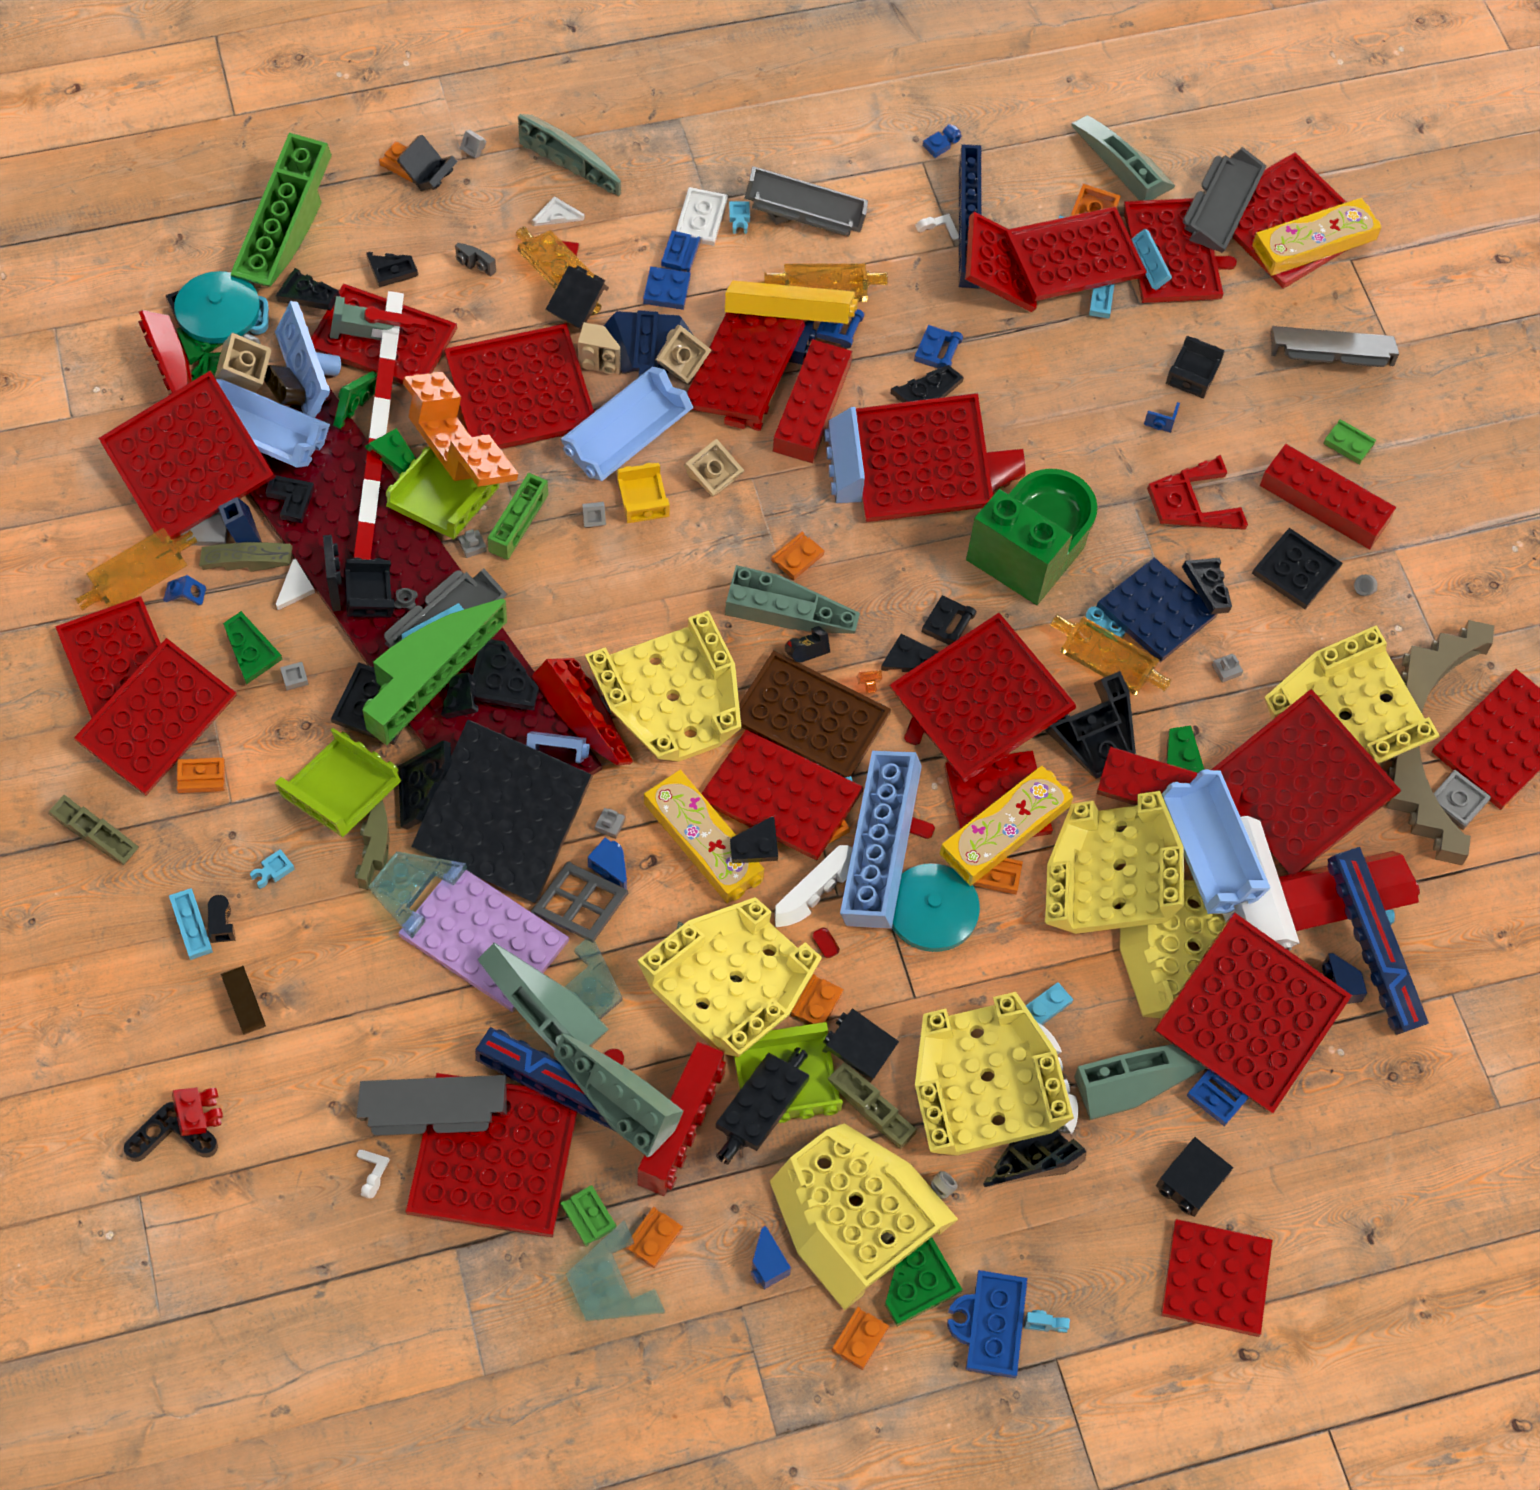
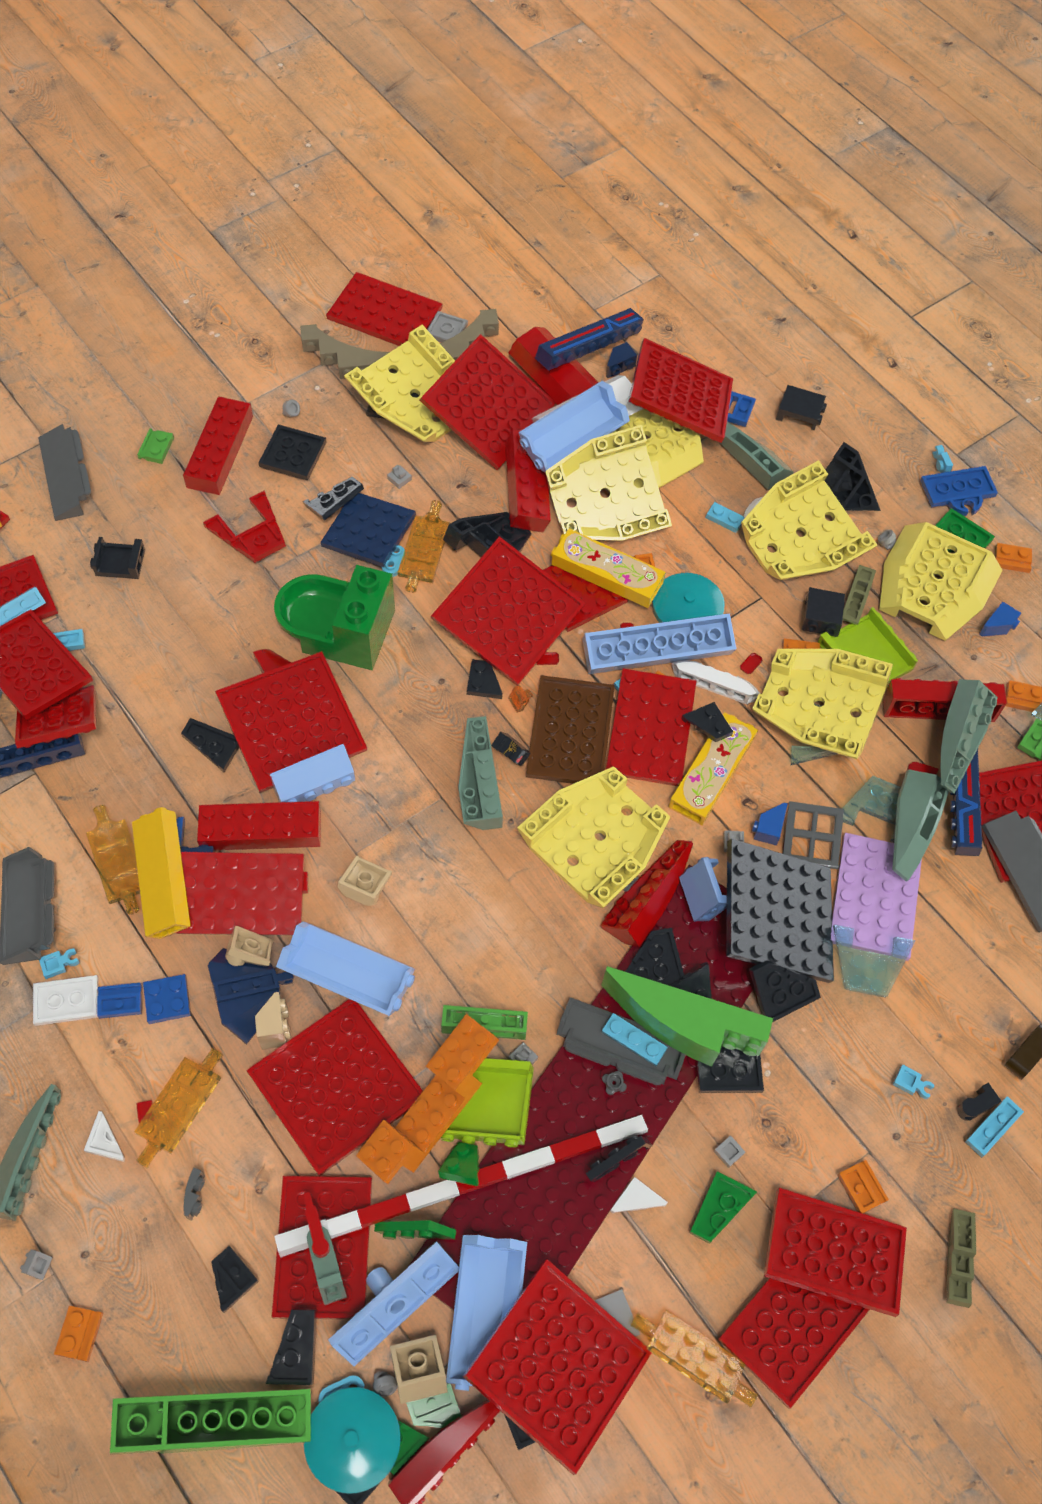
camera: 110 degrees left, 0 degrees up
(182, 587) = (692, 1302): blue bracket -> none
(239, 521) = (600, 1278): dark blue slope -> none
(248, 555) = (630, 1258): olive slope -> none
(285, 385) = (428, 1309): dark brown beam -> none
(294, 493) = (552, 1232): black plate -> none
(340, 784) = (816, 1058): lime panel -> none
(368, 588) = (624, 1115): black panel -> none
(376, 843) = (841, 1009): olive slope -> none
(425, 164) = (84, 1297): black bracket -> none
(576, 296) = (217, 1065): black panel -> none
(594, 514) = (452, 963): light grey tile -> none
(643, 493) = (412, 931): yellow panel -> none
(761, 1103) = (906, 652): black plate -> none
(797, 555) = (422, 789): orange plate -> none
(930, 222) = (16, 796): white piece -> none
(932, 344) = (160, 756): blue plate -> none
(942, 618) = (438, 668): black plate -> none
(1160, 421) = (186, 567): blue bracket -> none
(1183, 749) = (487, 485): green wing -> none
(1217, 1278) = (856, 385): red plate -> none

